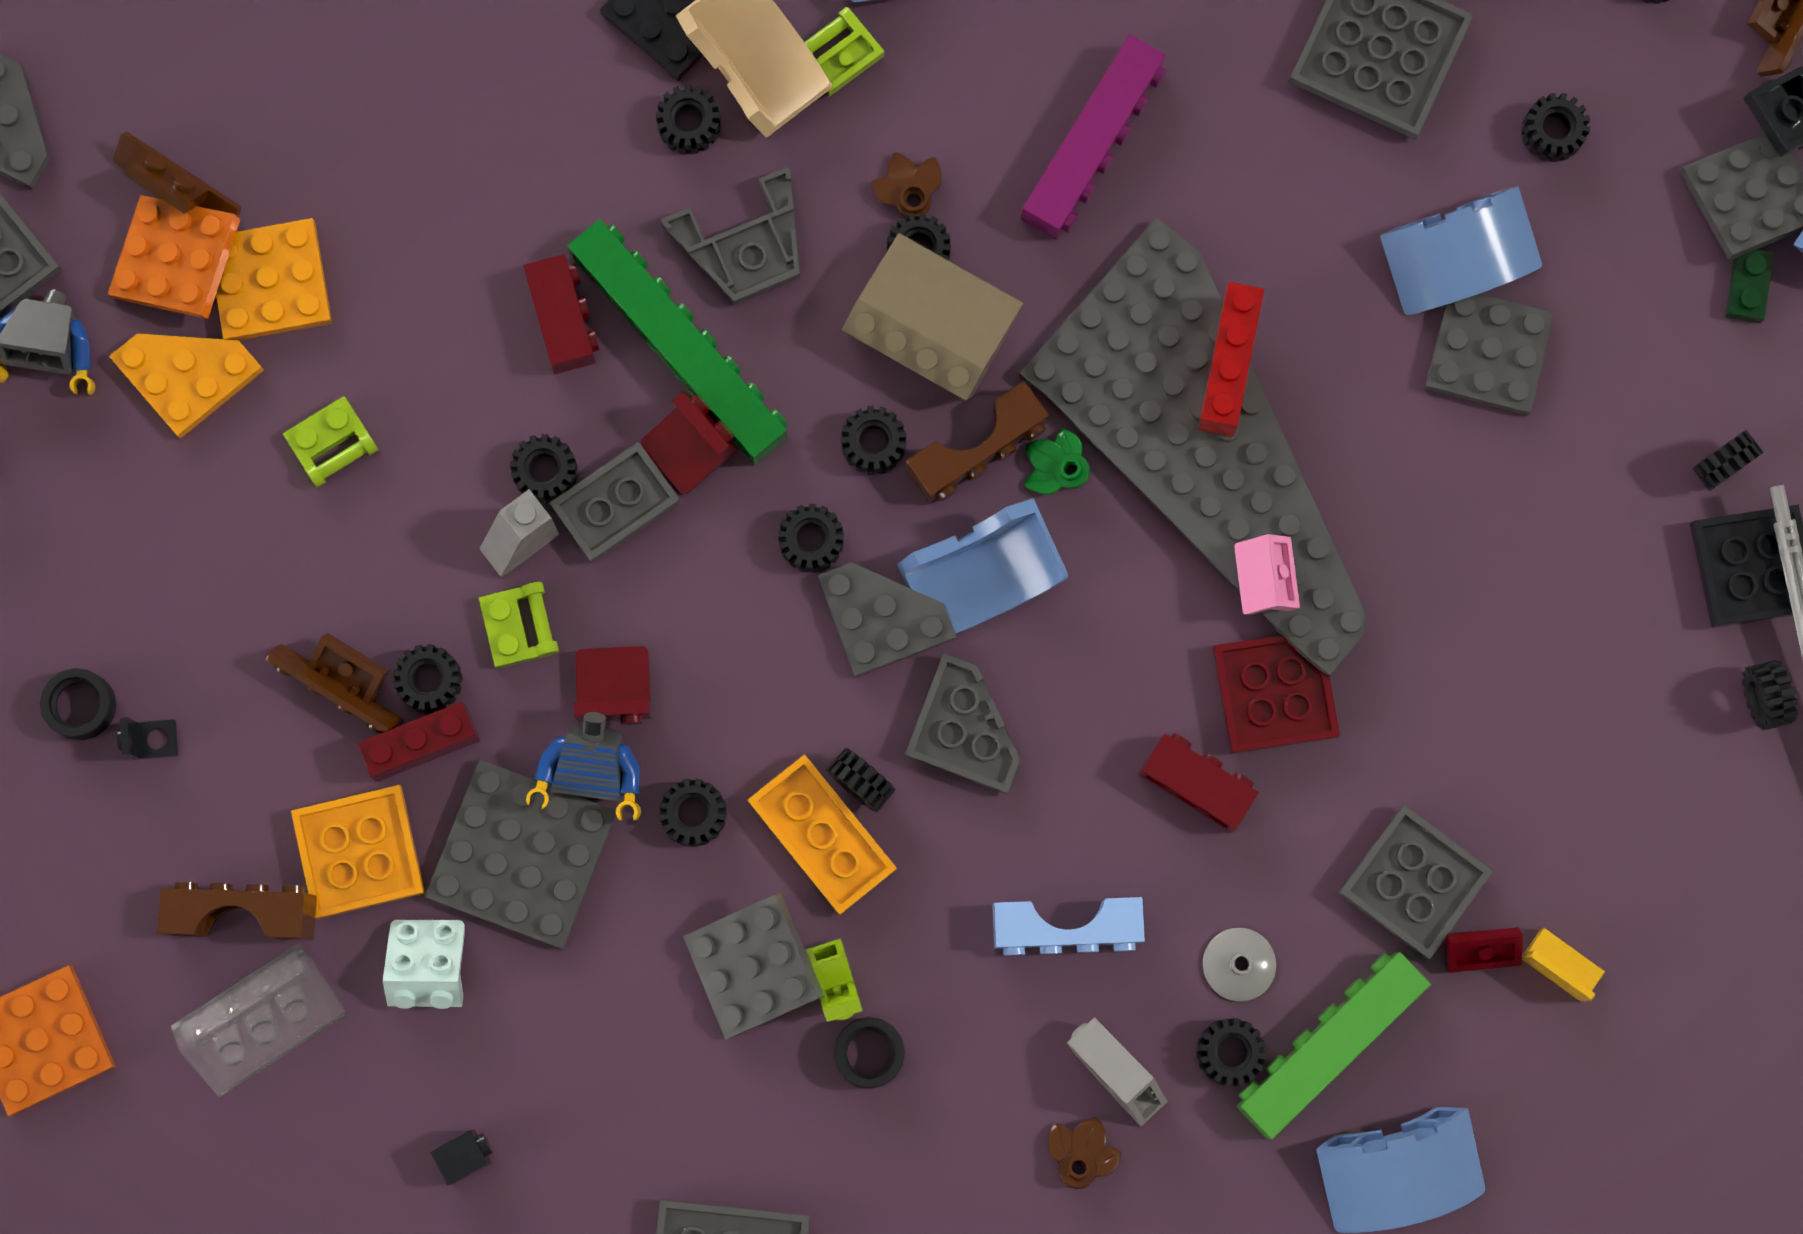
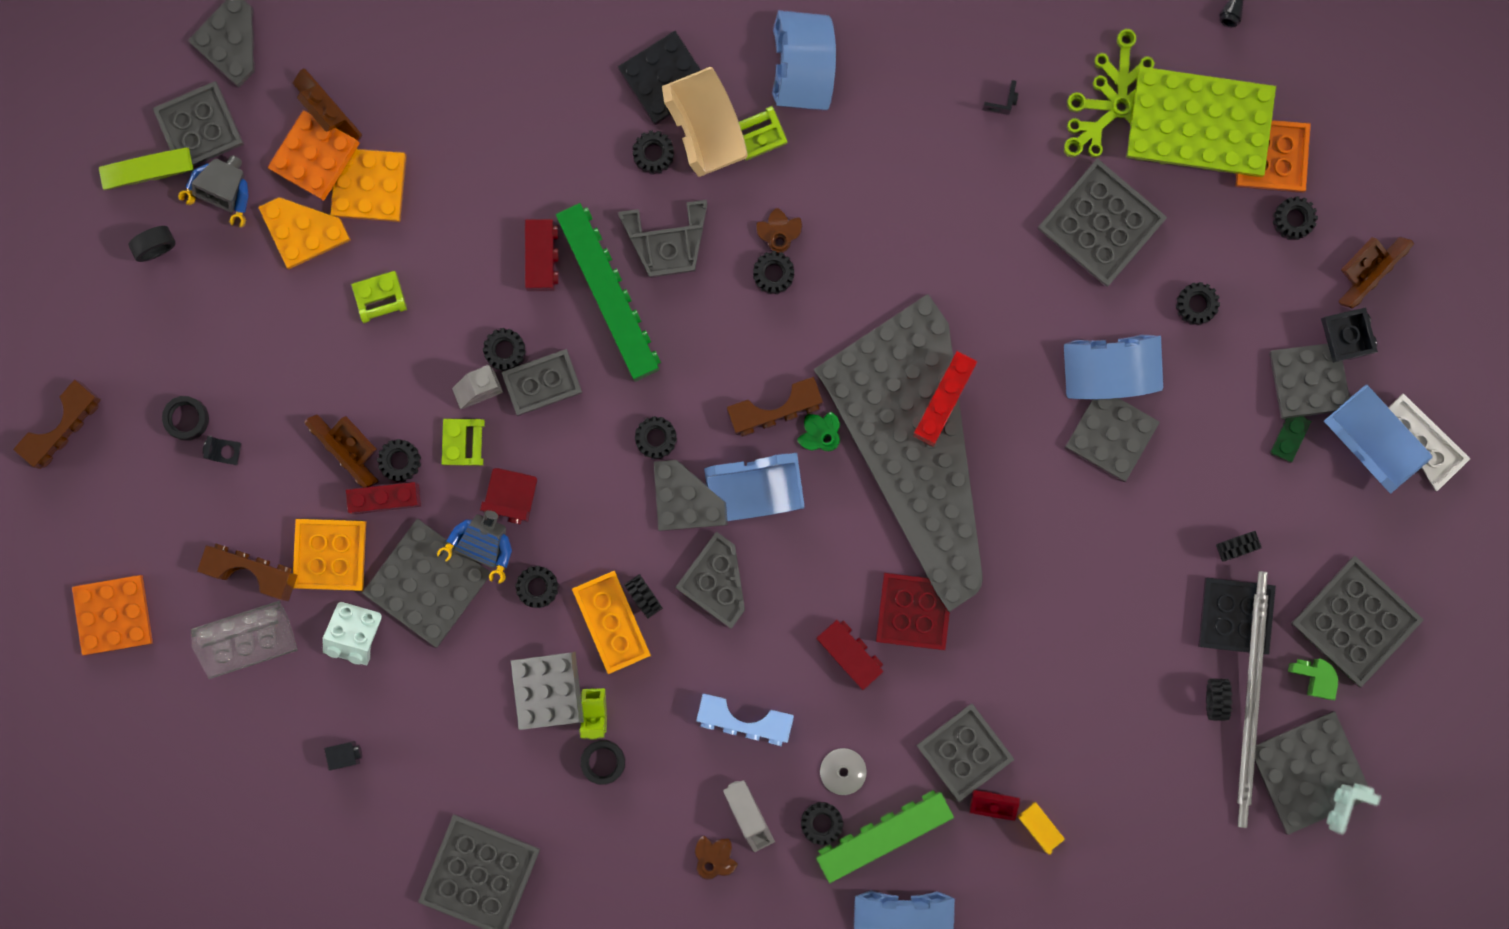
camera: 25 degrees right, 5 degrees up
(688, 443) = (596, 358): dark red bracket -> none
(878, 419) = (711, 373): black tyre -> none
(932, 317) = (768, 321): dark tan slope -> none
(1093, 137) = (903, 231): magenta brick -> none
(1267, 574) = (928, 539): bright pink panel -> none

